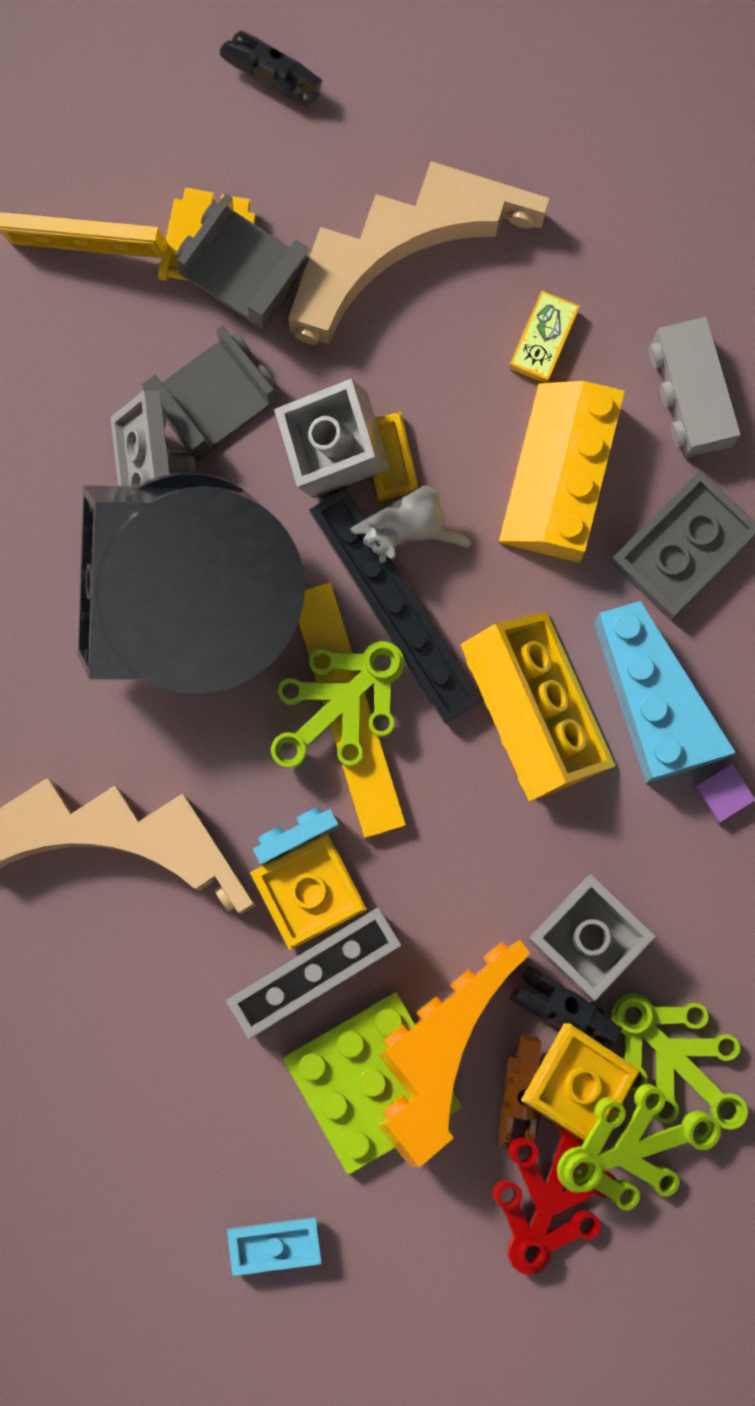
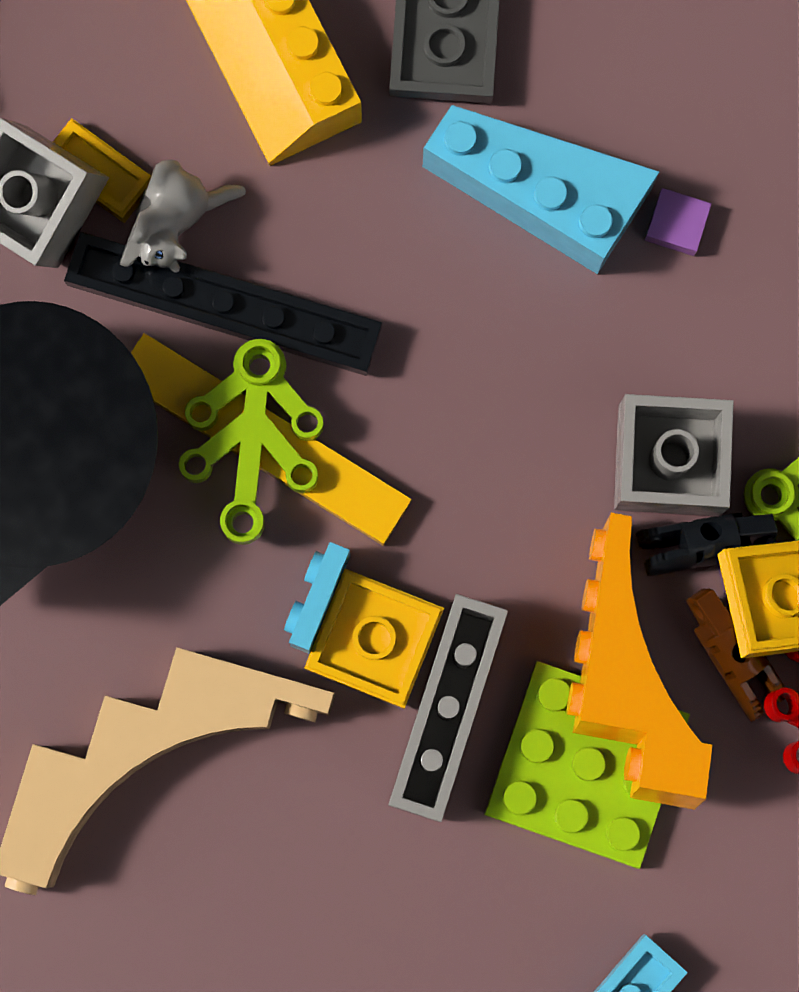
camera: 45 degrees left, 0 degrees up
(537, 704) = (436, 284): yellow slope -> none

